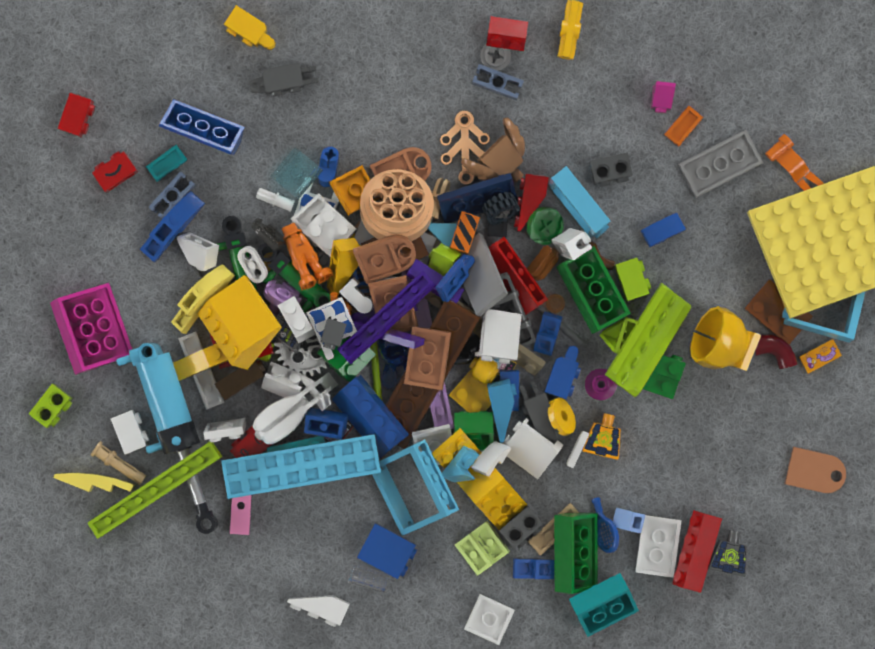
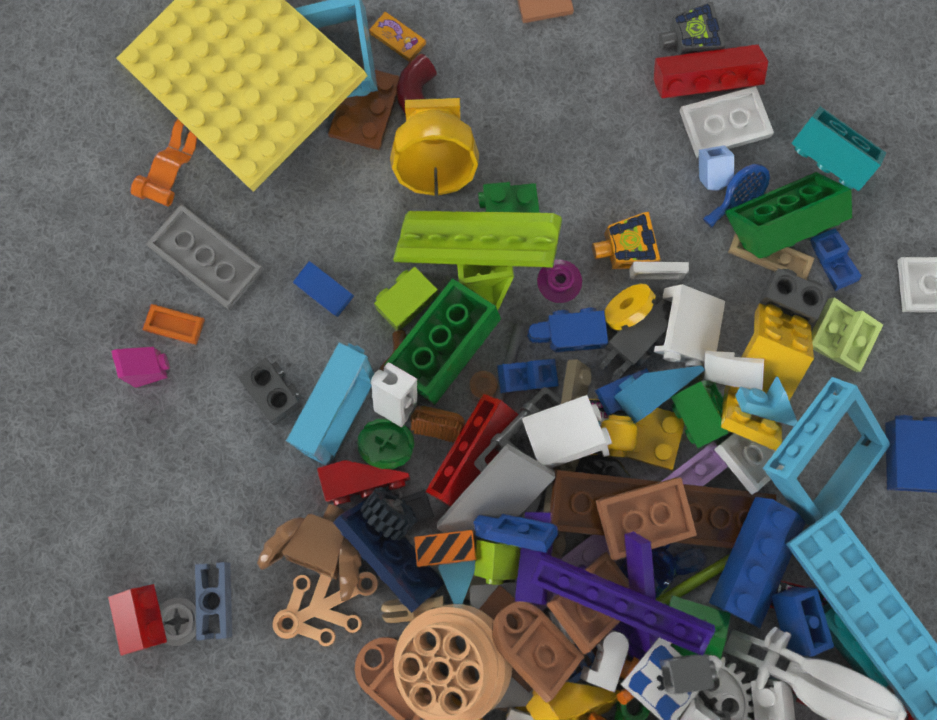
camera: 115 degrees left, 10 degrees down
(570, 29) = (98, 532): yellow piece -> none

